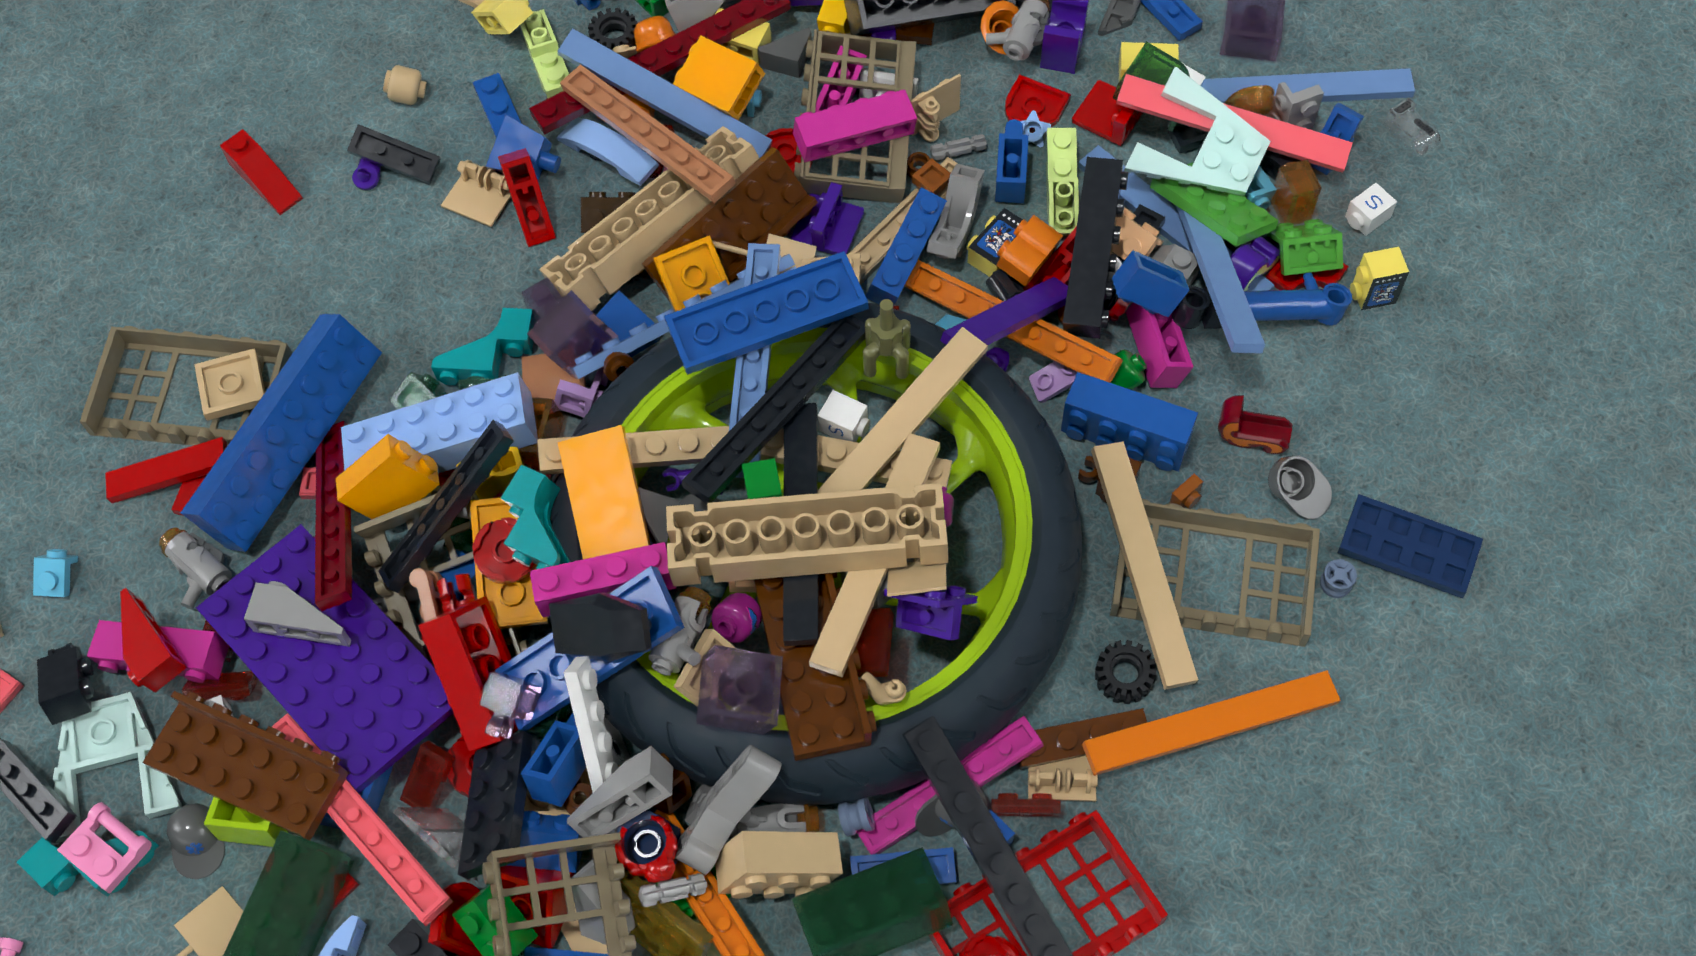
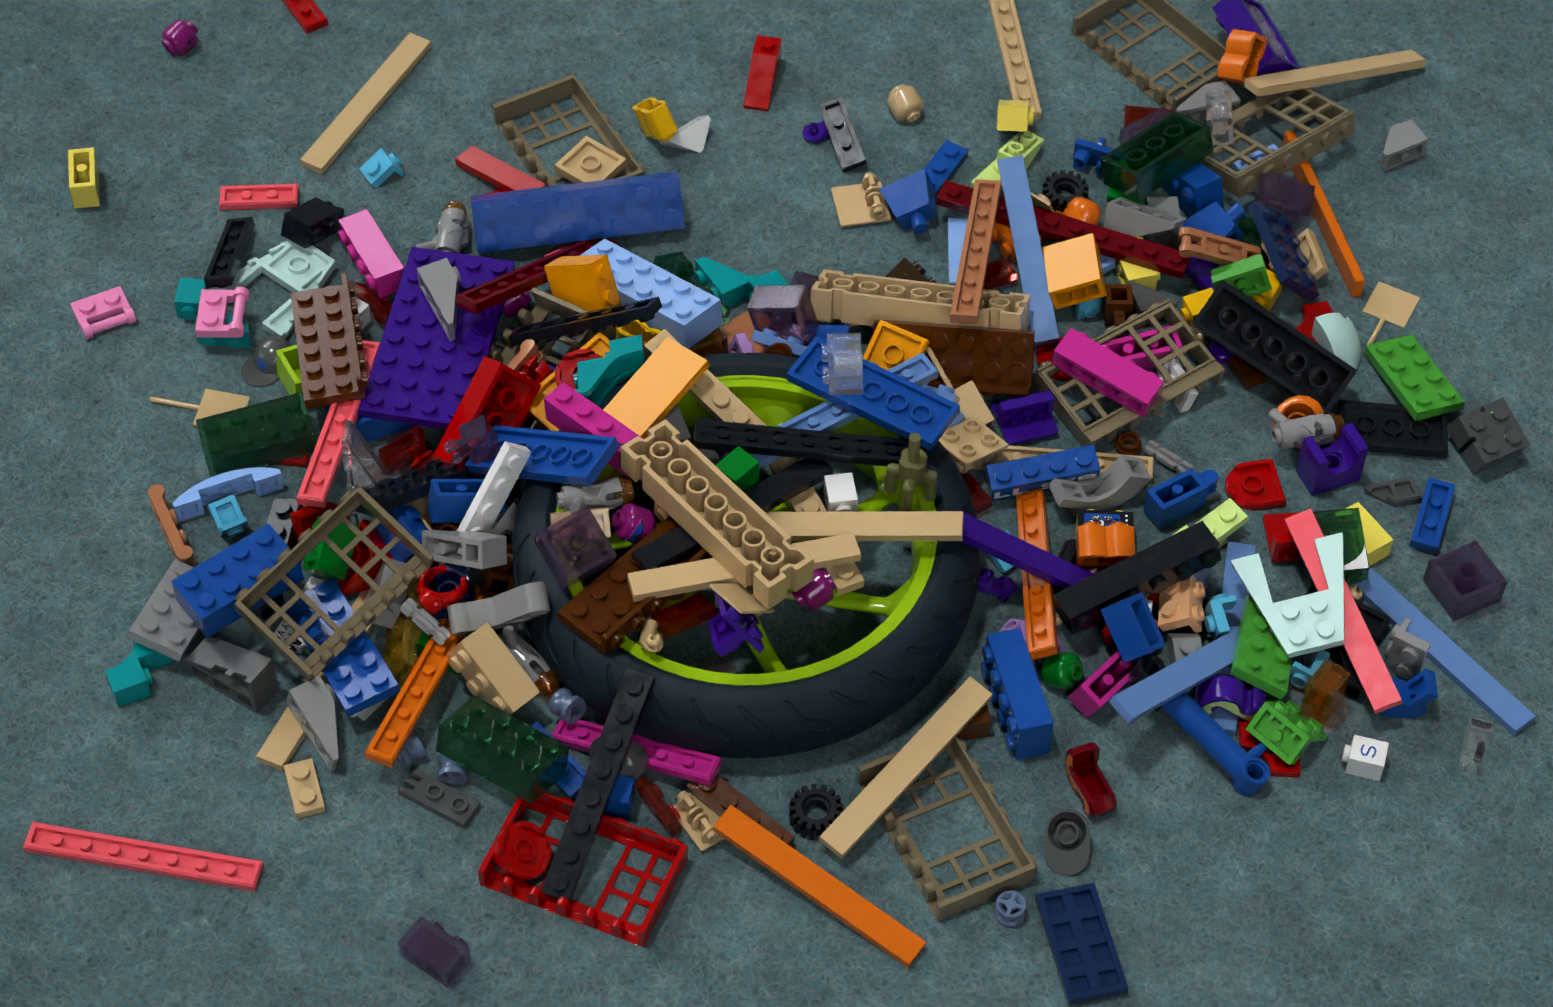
camera: 50 degrees right, 10 degrees down
(145, 645) = (365, 238): red slope -> none
(234, 292) = (655, 119): none -> yellow brick
(271, 278) = (691, 135): none -> white slope
(526, 197) = (875, 225): red slope -> none
(600, 627) = (553, 442): black piece -> none
(725, 312) = (844, 363): none -> clear brick
(778, 76) = (1118, 303): none -> reddish brown brick
(931, 177) = (1115, 448): dark orange plate -> none
(936, 105) = (1182, 417): tan hinge -> none
(1039, 126) = (1225, 488): light blue plate -> none
(1164, 218) = (1215, 616): none -> medium azure bracket
(1188, 493) = (995, 769): dark orange plate -> none
(1253, 99) = (1379, 614): clear orange helmet -> none
(1379, 278) = (1297, 791): light yellow brick -> none

